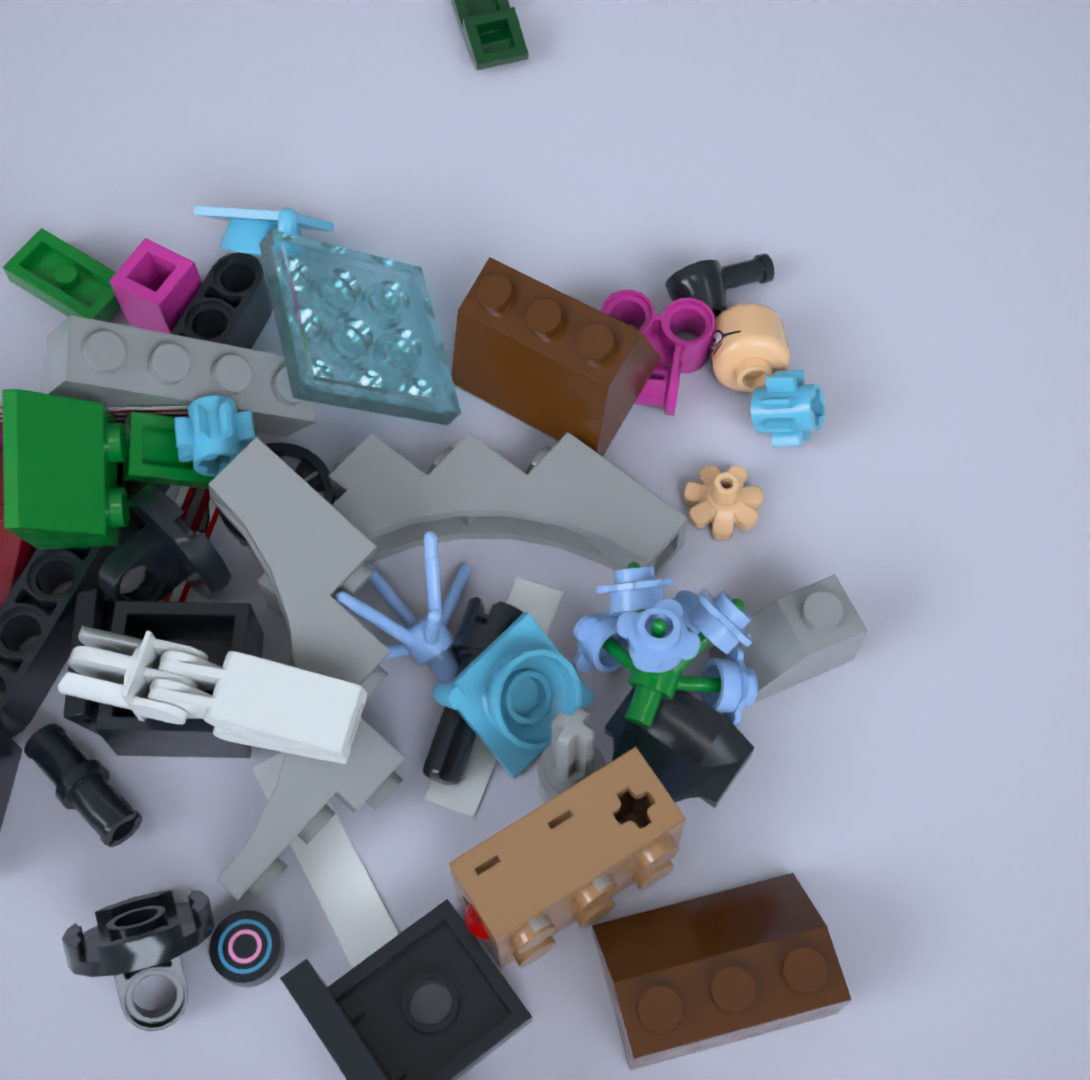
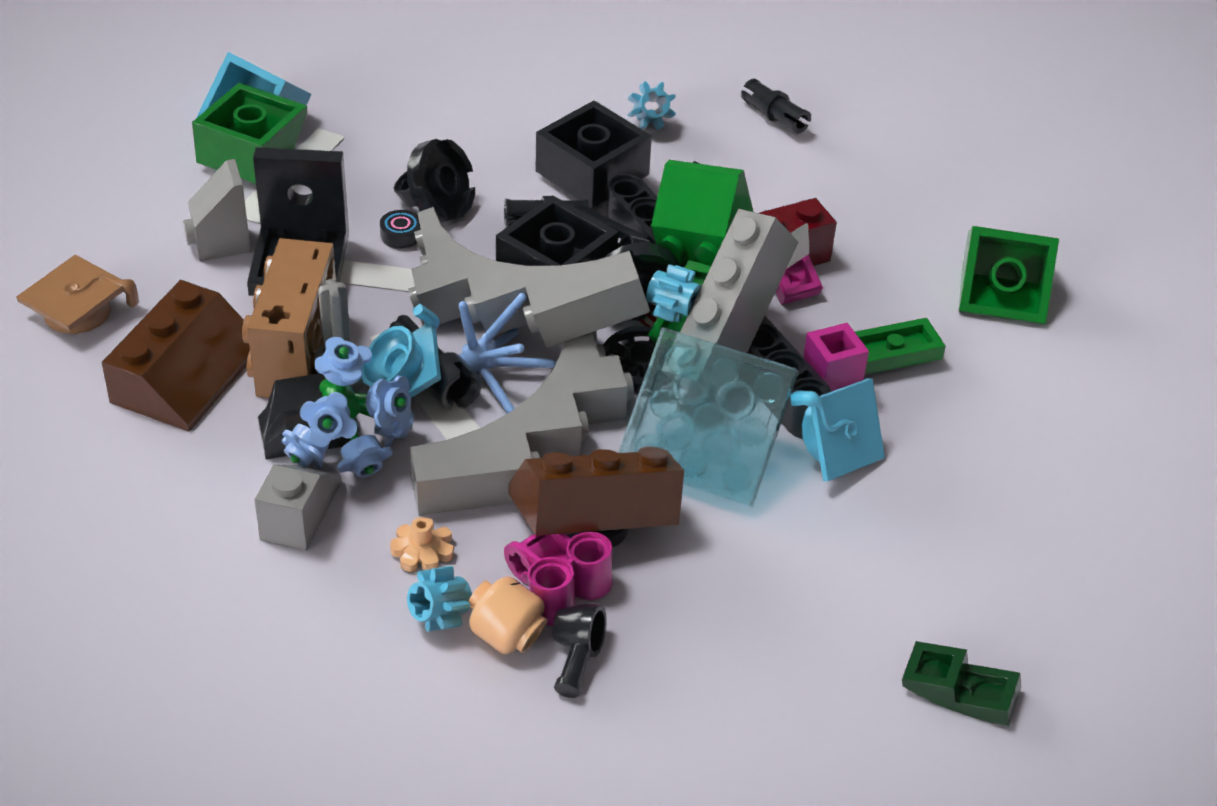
camera: 125 degrees right, 20 degrees down
(251, 699) = (506, 224): white arm -> none

